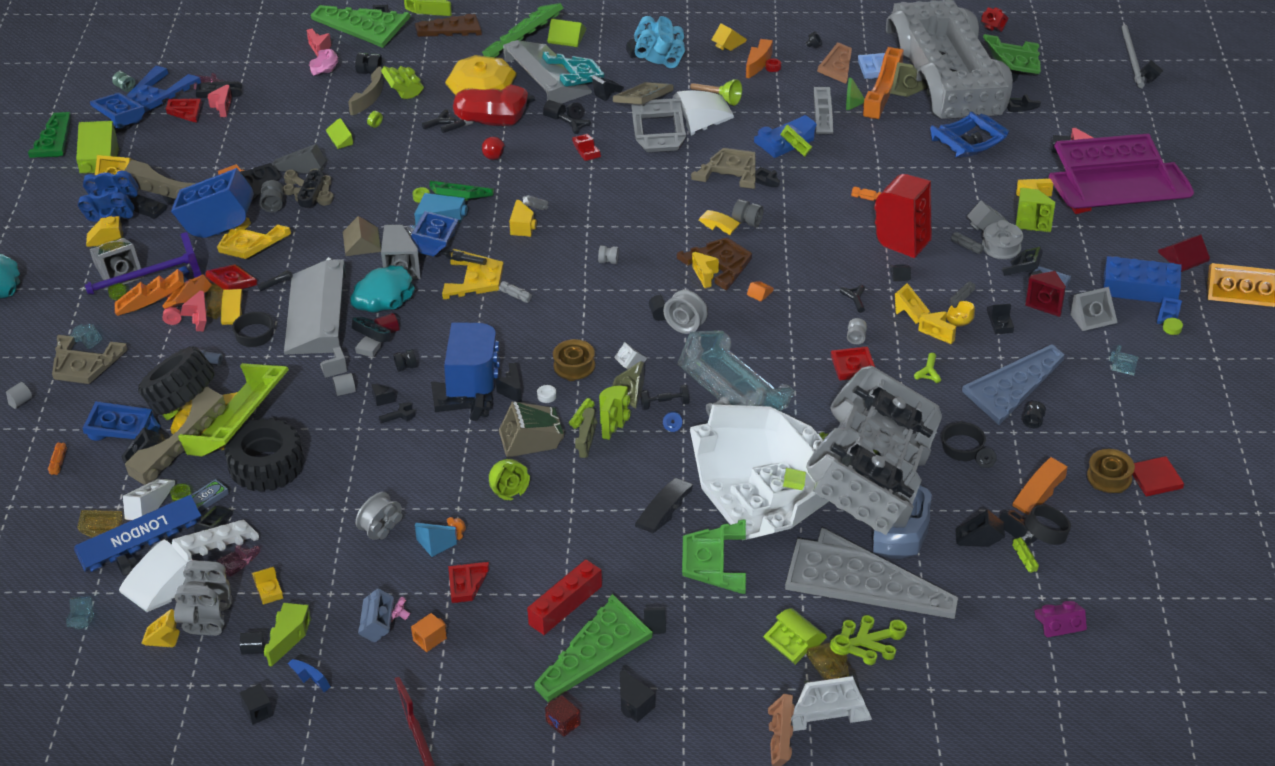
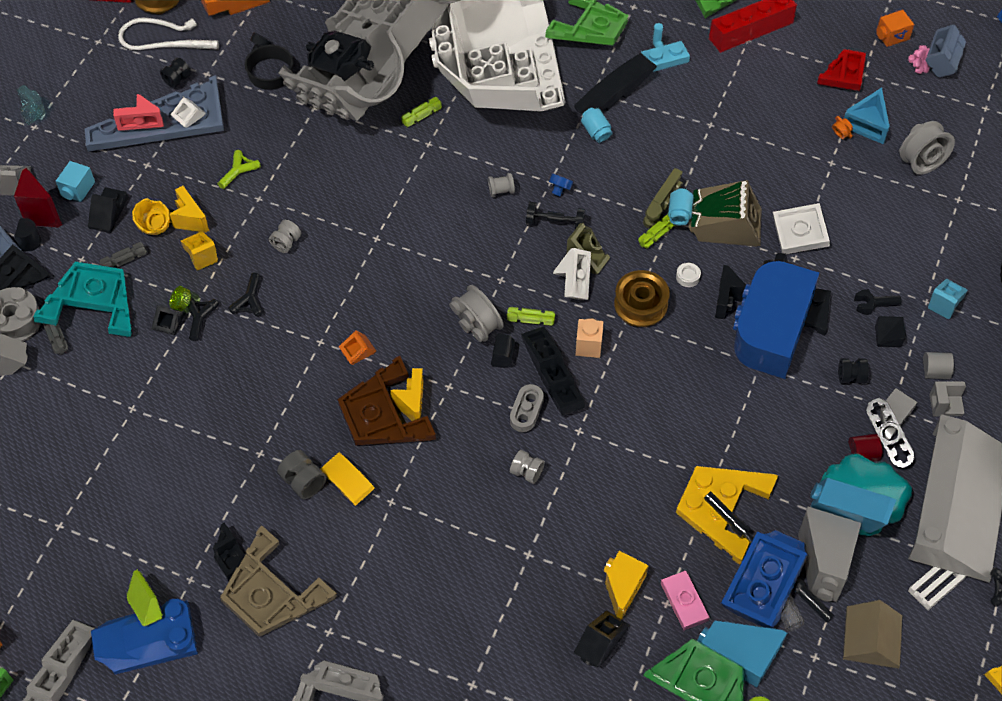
camera: 160 degrees left, 15 degrees up
(342, 420) = (946, 298): none -> medium azure slope
(387, 254) = (853, 503): none -> dark azure slope
(469, 443) = (801, 229): none -> white plate
(482, 226) = (685, 600): none -> bright pink plate
(508, 478) = (772, 159): lime cylinder -> none
(515, 292) = (676, 448): light grey axle -> none
(524, 187) = (600, 639): none -> black slope
(535, 202) = (594, 601): light grey axle -> none
(568, 416) = (680, 207): none -> medium azure brick
(598, 324) = (589, 338): none -> light nougat brick
(613, 409) = (624, 200): lime brick -> none
(621, 311) = (552, 370): none -> black slope
(625, 284) = (526, 410): none -> light grey plate
(635, 552) = (666, 55): none -> medium azure plate
(650, 336) = (530, 316): none -> lime axle
(665, 469) = (596, 124): none -> medium azure brick
(724, 375) = (462, 215): windscreen -> none
(794, 479) = (476, 46): lime tile -> none
(850, 361) = (314, 204): red tile -> none
(864, 193) = (114, 466): orange axle -> none
(882, 278) = (199, 315): none -> black piece
(899, 278) = (180, 298): none -> clear neon green tile
(904, 215) = (115, 346): red brick -> none
(960, 267) = (90, 288): none -> teal wing
(994, 383) = (187, 112): none -> white slope
(1026, 363) = (140, 117): none -> coral slope
(1037, 322) = (75, 181): none -> medium azure brick
(1047, 446) = (198, 44): none -> white piece

